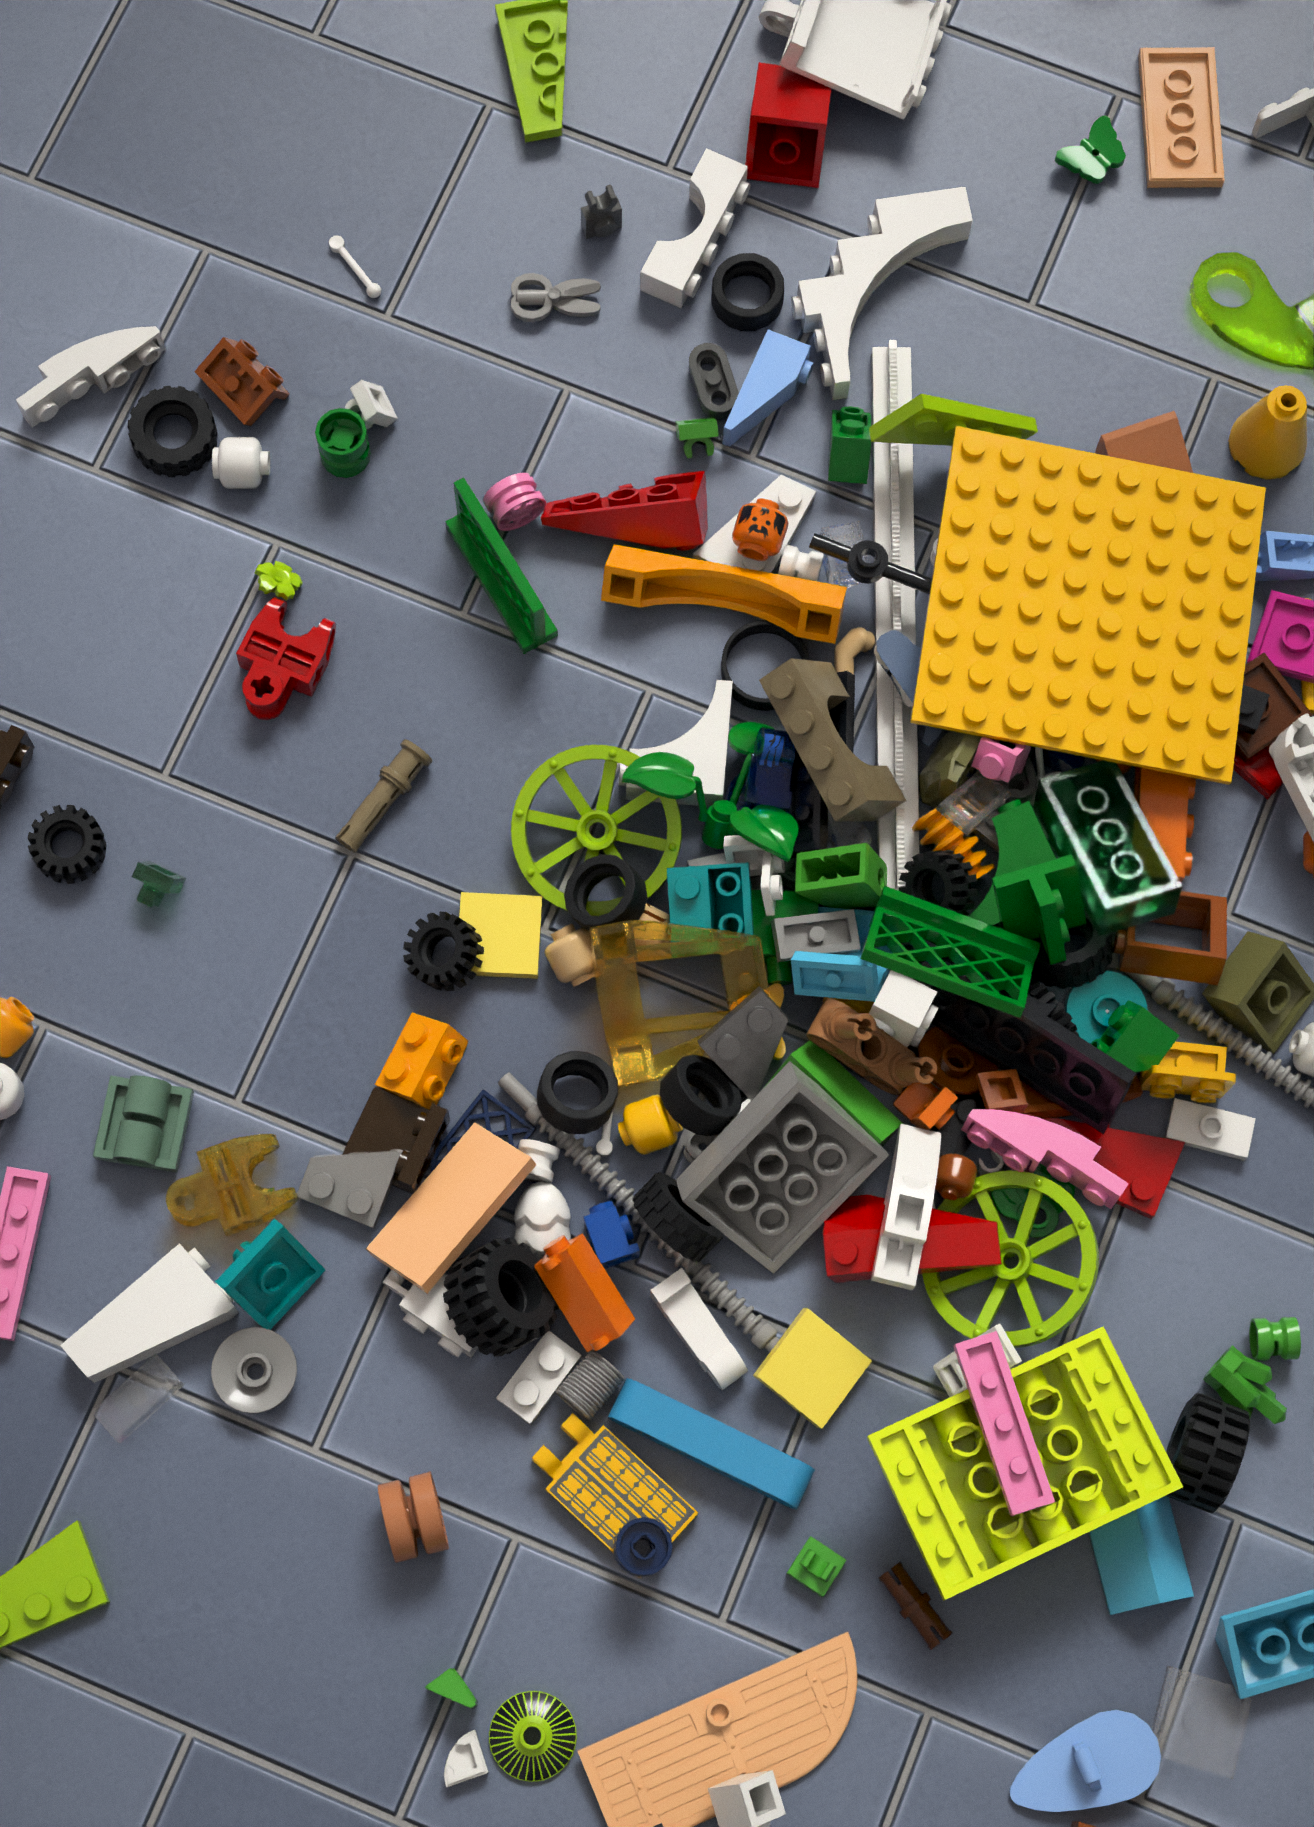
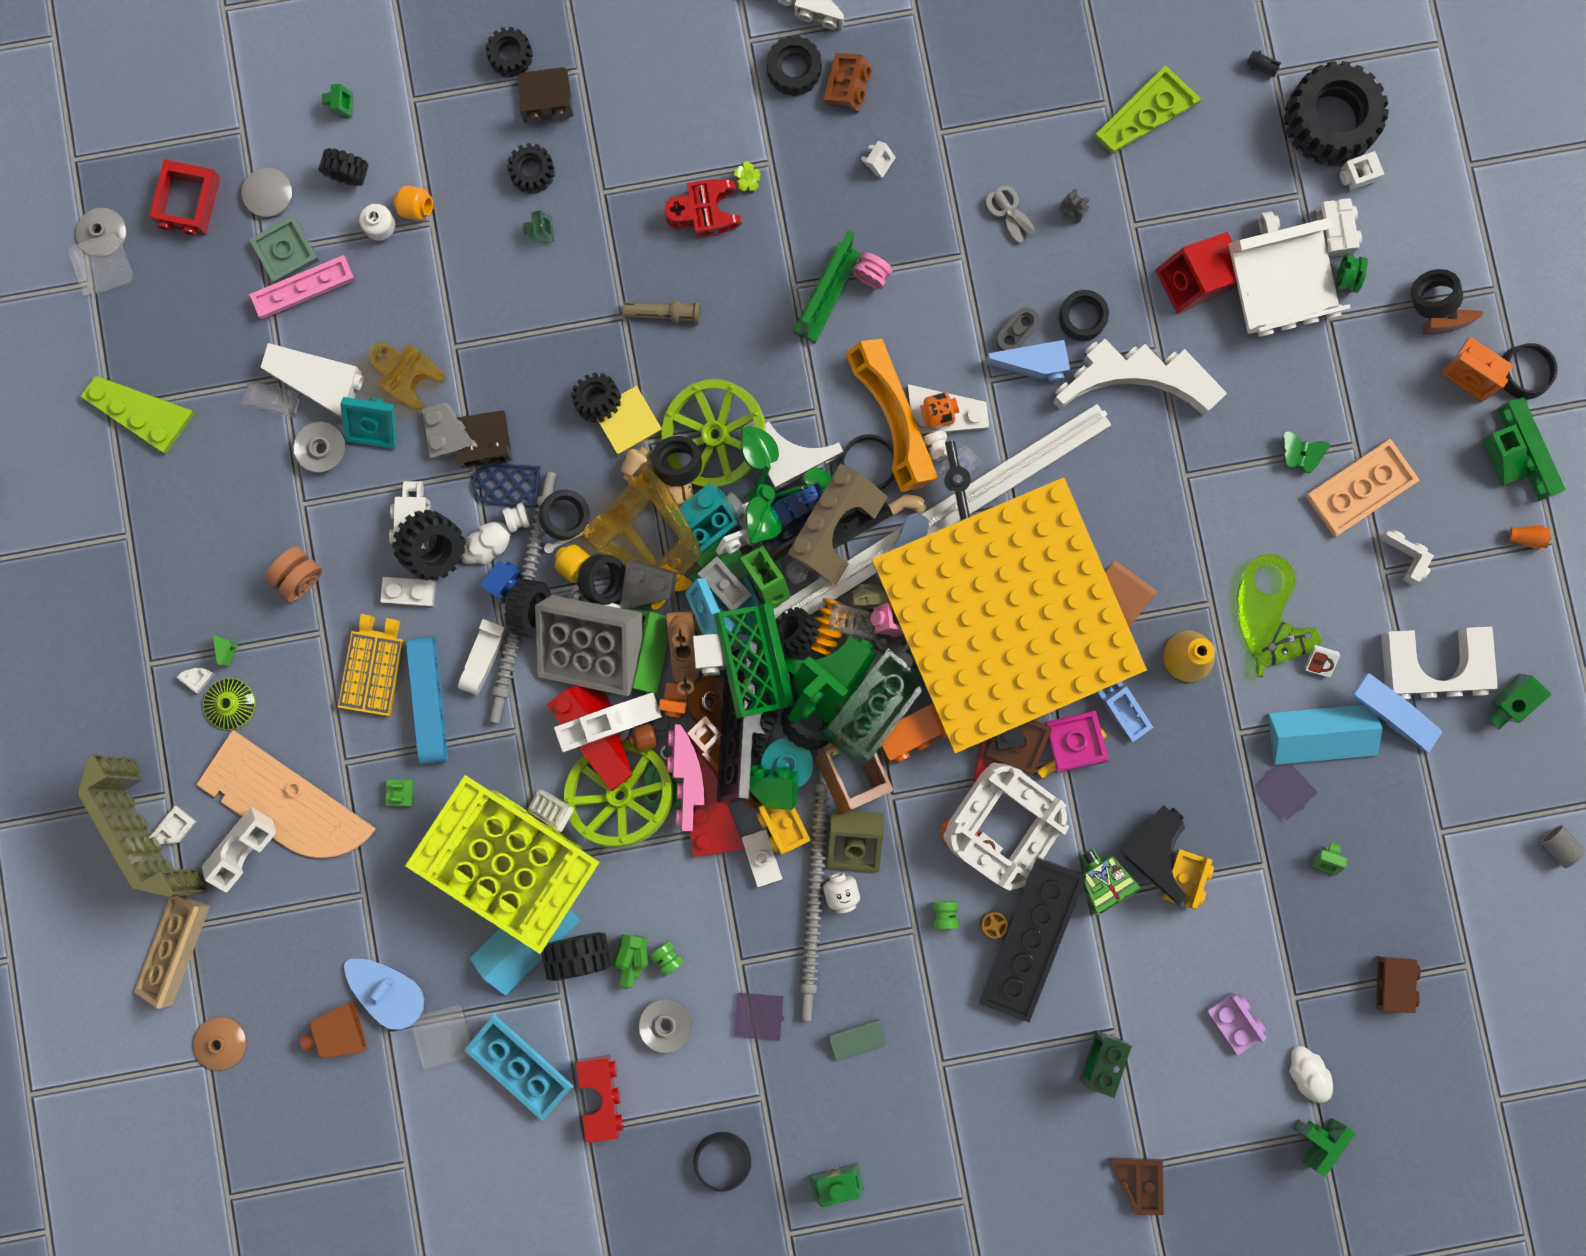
camera: 60 degrees right, 10 degrees up
(143, 1123) = (409, 307): sand green plate -> none
(240, 462) = (799, 112): white head -> none
(338, 246) = (963, 78): white hinge -> none
(343, 442) = (845, 158): green wheel -> none
(422, 1061) = (532, 426): light orange bracket -> none
(451, 1207) = (461, 490): light nougat tile -> none
(584, 1291) = (460, 585): orange brick -> none
(590, 1385) = (417, 619): light grey piece -> none
(642, 1547) = (347, 697): dark blue wheel -> none
(658, 516) = (915, 349): red wedge -> none
(675, 265) = (1072, 267): white arch -> none
(697, 430) = (981, 339): bright green tile -> none
(812, 1368) = (498, 727): light yellow tile -> none
(849, 445) = (1027, 428): green slope -> none
(915, 1605) = (402, 872): reddish brown pin -> none
(934, 419) = (1065, 467): lime wing -> none
(1003, 1423) = (511, 840): bright pink plate -> none

